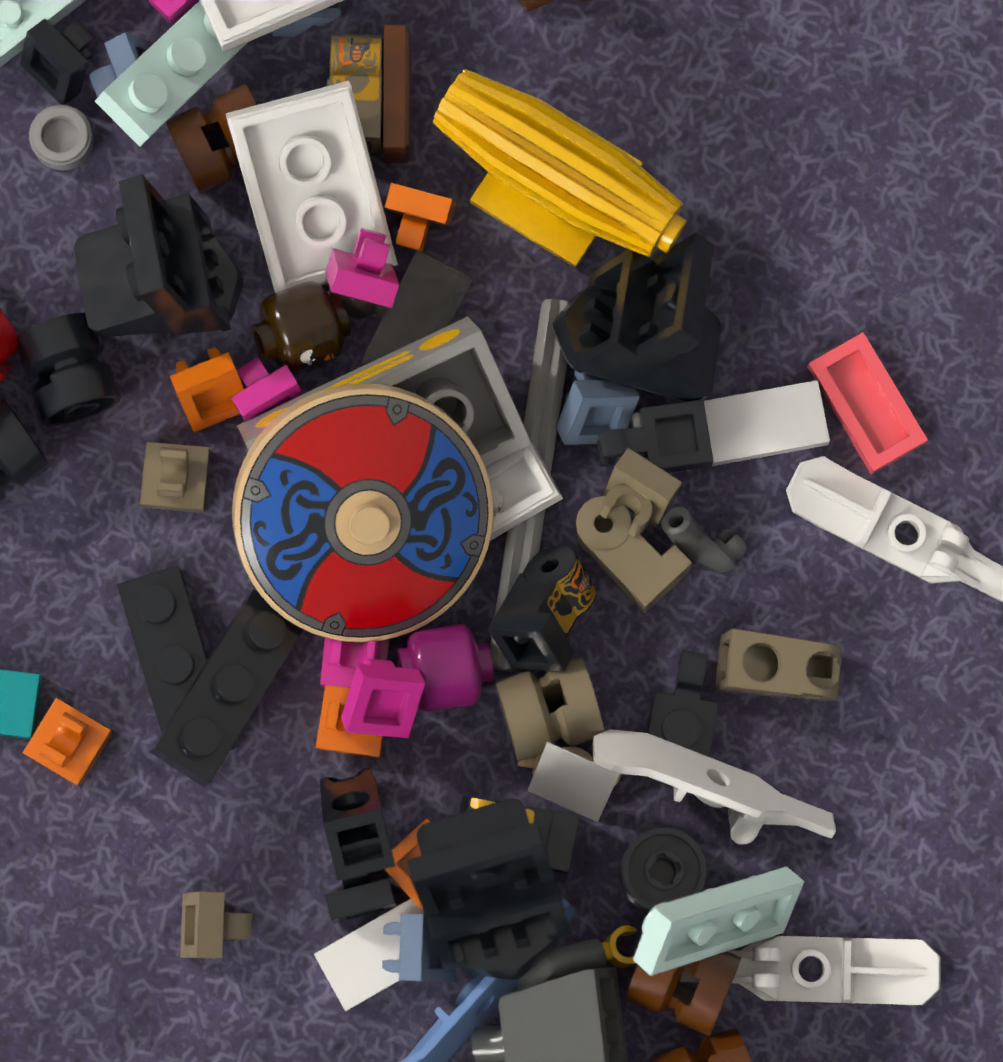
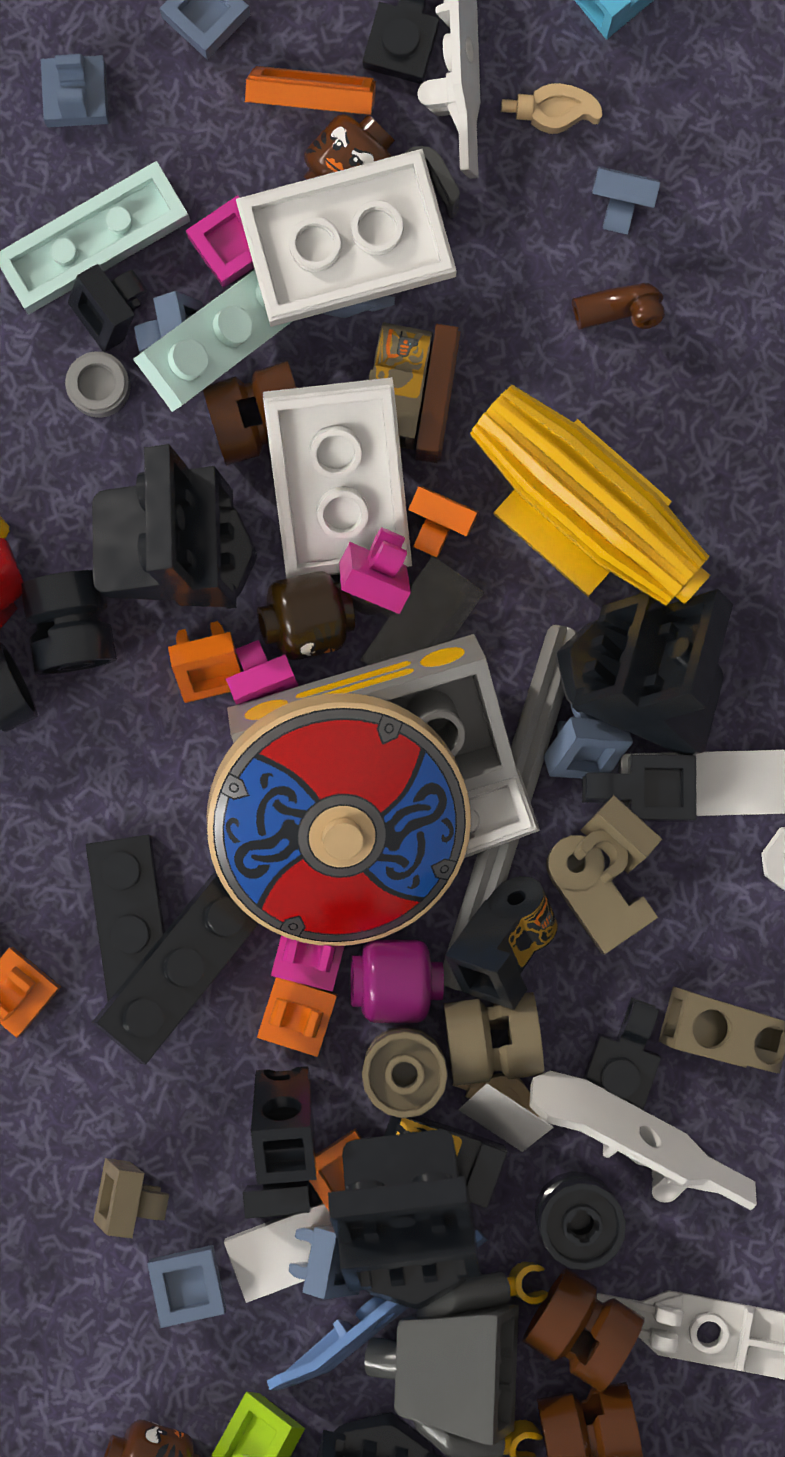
camera: 10 degrees right, 5 degrees up
(175, 477) = (159, 744): dark tan tile -> none
(283, 999) = (186, 1286): none -> sand blue tile
(382, 699) = (329, 1009): dark pink tile -> none
(466, 752) = (404, 1072): none -> dark tan wheel
(687, 535) = (662, 894): dark grey arm -> none
(717, 920) = (626, 1284): light aqua plate -> none

